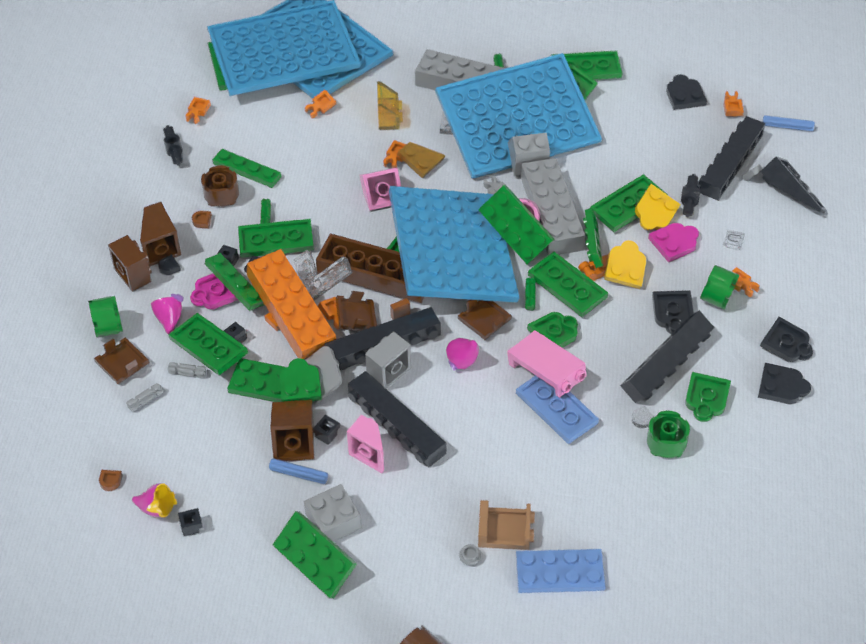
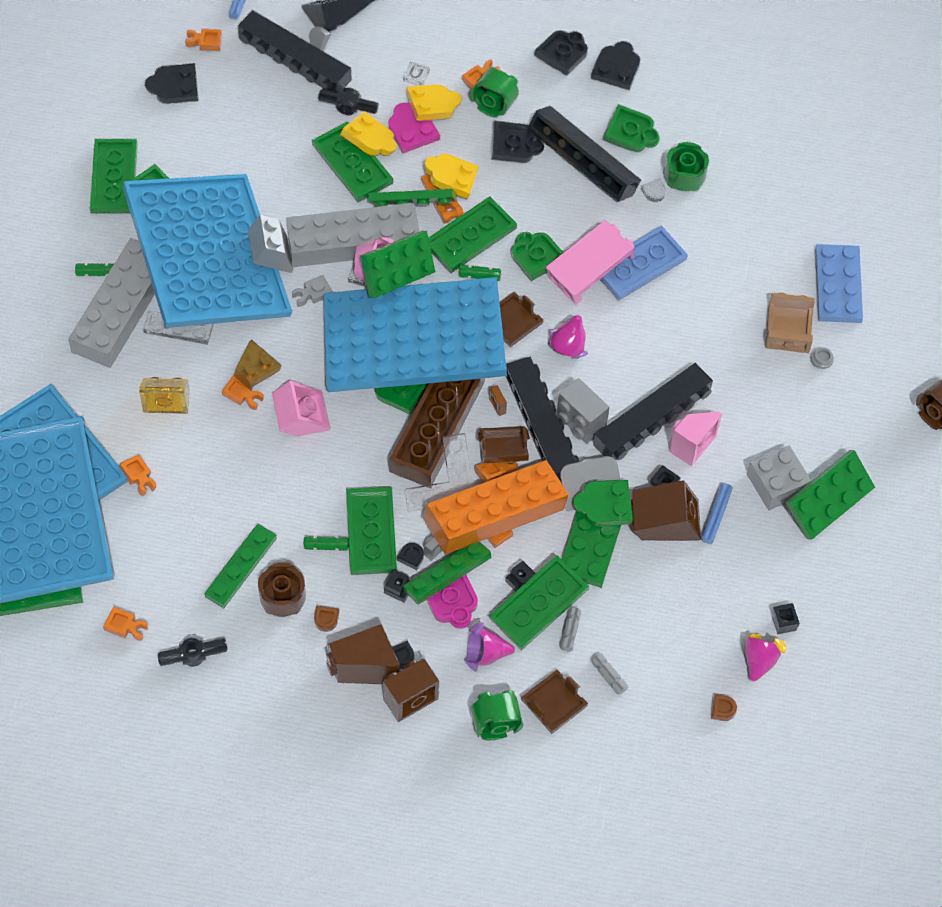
camera: 90 degrees left, 10 degrees up
(702, 249) = (432, 101): none -> yellow plate

